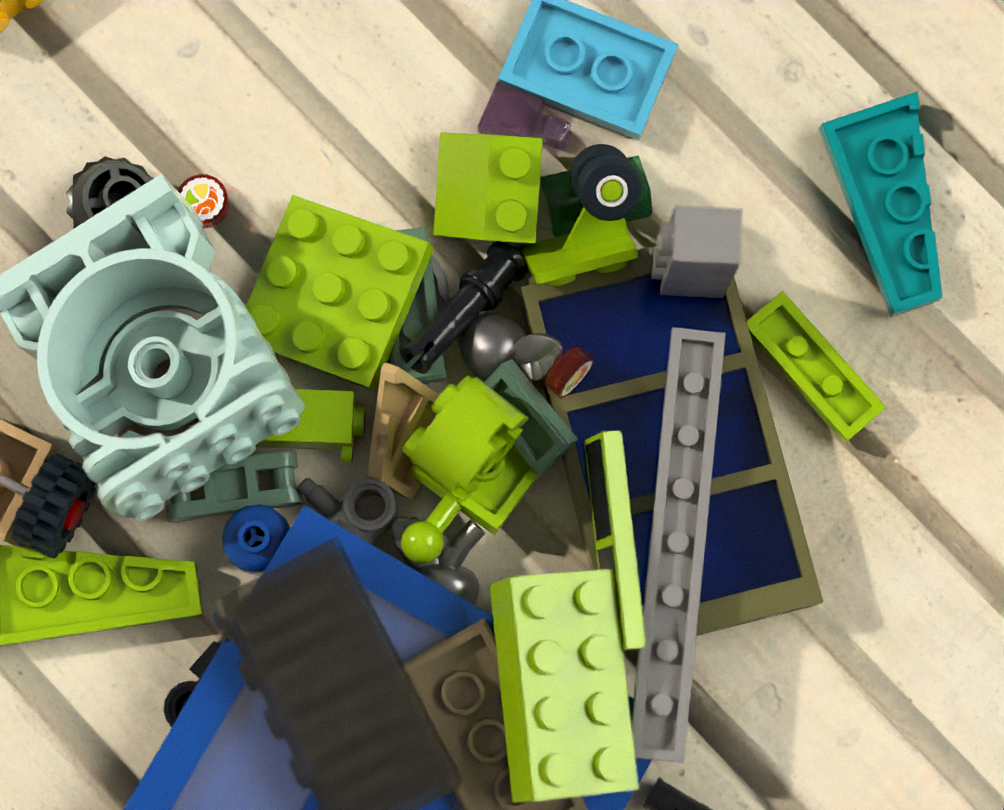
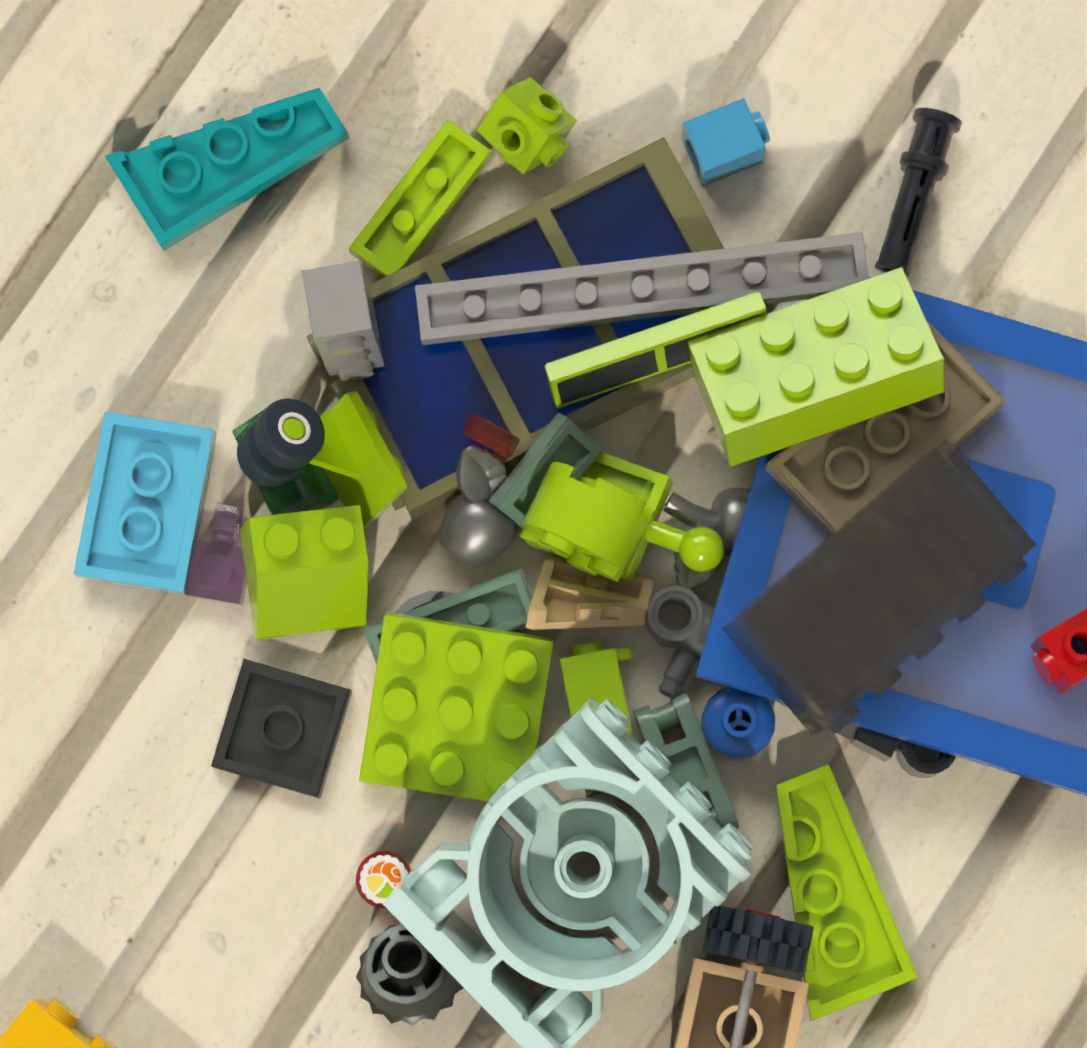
camera: 95 degrees left, 0 degrees up
(358, 142) = (281, 728): none -> pearl dark grey tile
(478, 292) = (423, 557): black pin -> none
(810, 663) = (725, 141): none -> dark azure brick
(863, 479) = (527, 126): none -> lime brick

